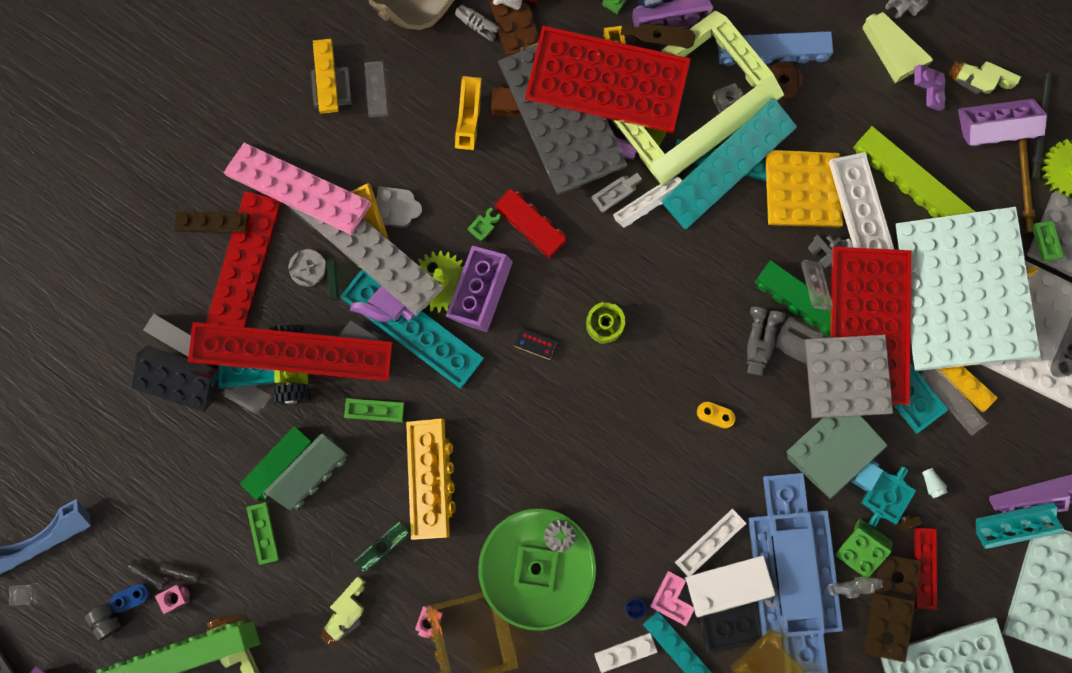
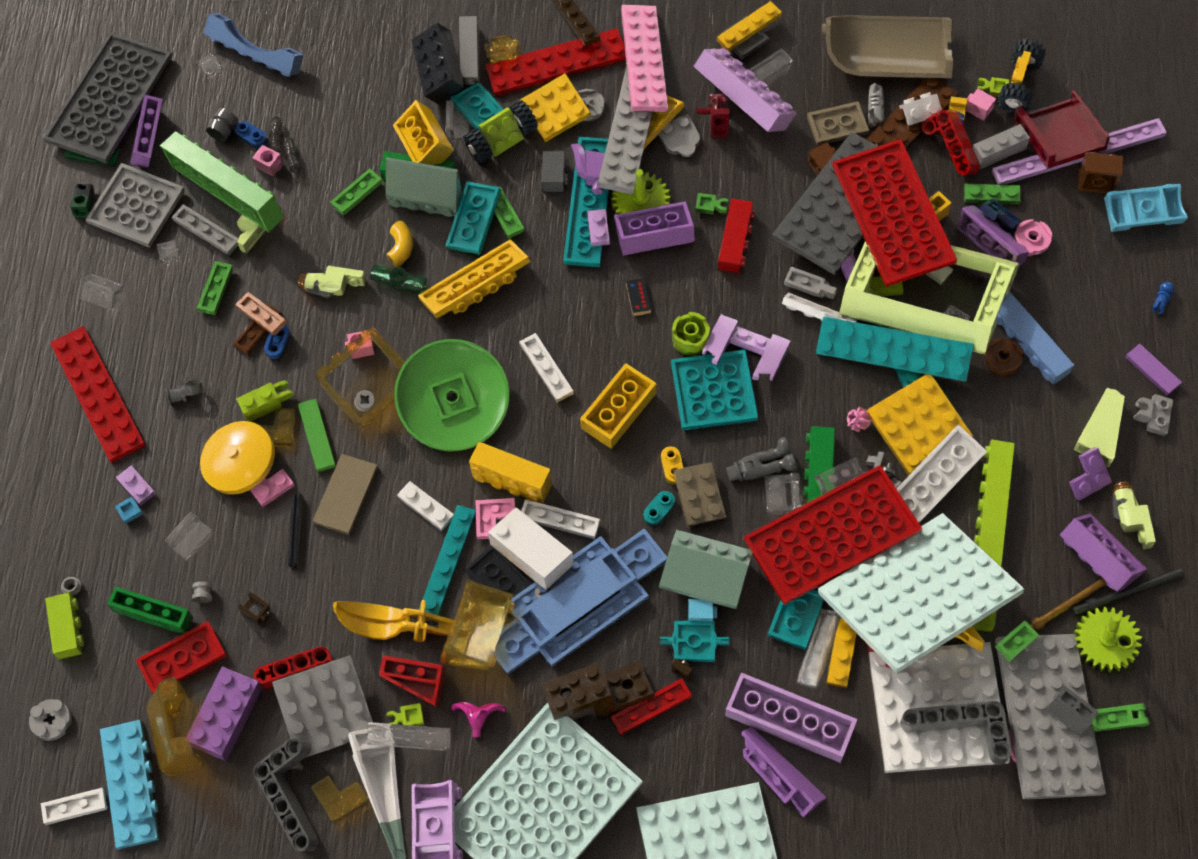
camera: 60 degrees right, 15 degrees down
(197, 298) = (502, 48): none -> clear yellow plate
(248, 439) = (423, 135): none -> yellow slope
(289, 352) = (509, 120): red plate -> none
(293, 298) = (556, 107): none -> yellow plate
(332, 273) = (589, 125): clear green tile -> none
(349, 522) = (403, 244): none -> yellow cylinder
(363, 442) = (473, 218): none -> teal tile
(391, 122) = (745, 89): none -> lavender brick
(408, 163) = (719, 115): none -> dark red piece
(448, 337) = (598, 227): none -> lavender plate
(468, 113) = (797, 138): yellow arch -> none
(474, 59) = (837, 123): none -> dark tan plate
(494, 654) = (366, 402): none -> light grey wheel
(553, 529) = (489, 404): light grey gear -> none
(557, 467) = (546, 367): none -> white plate
(635, 608) = (465, 486): clear blue wheel -> none
(636, 427) = (618, 405): none -> yellow brick
(647, 561) = (510, 473): none -> yellow brick
(661, 261) = (727, 331): none -> lavender wedge
(668, 336) = (713, 393): none -> teal plate
(670, 35) = (967, 237): dark brown piece -> none
(748, 451) = (661, 508): none -> teal plate
(759, 410) = (699, 494): none -> dark tan plate
(771, 234) = (858, 419): none -> bright pink gear
(848, 376) = (773, 537): light grey plate -> none
(853, 588) = (591, 643): clear plate -> none
(865, 549) = (636, 645): bright green bracket -> none
(934, 484) = (730, 675): light aqua cone -> none
(1003, 461) = (790, 717): none -> lavender brick
(1016, 522) = (742, 761): teal fence -> none

